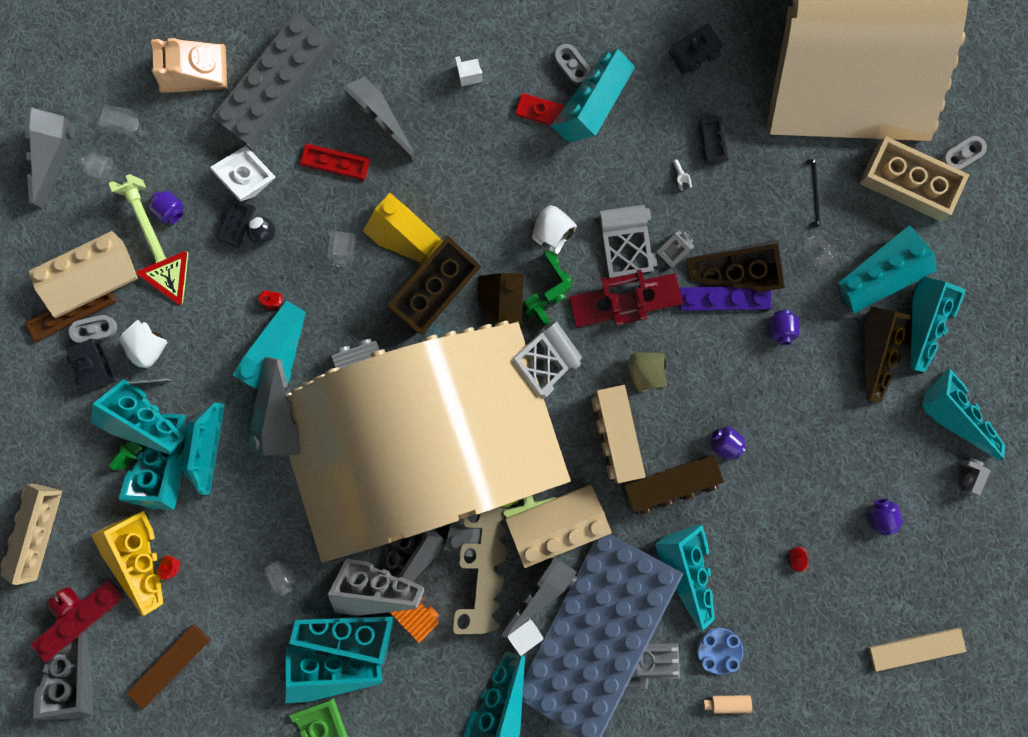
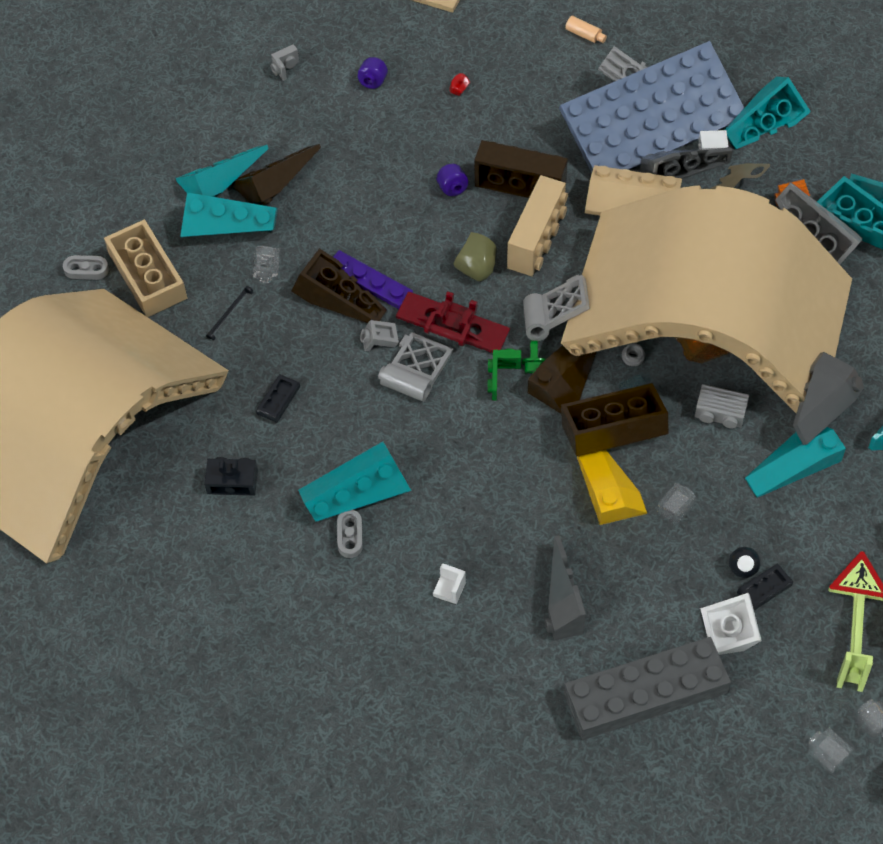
camera: 145 degrees left, 25 degrees down
(166, 207) = (826, 640): dark purple head -> none
(188, 65) = (723, 760): light nougat piece -> none
(270, 300) = (771, 502): red piece -> none
(335, 162) = (633, 587): red tile -> none
(538, 109) = (409, 516): red plate -> none
(553, 228) = (474, 405): white piece -> none
(682, 177) = (327, 390): white hand -> none
(685, 553) = (549, 128): teal wedge -> none
(720, 651) = (566, 62): medium blue dish -> none
(784, 327) = (340, 230): dark purple head -> none
(950, 408) = (259, 103): teal wedge -> none

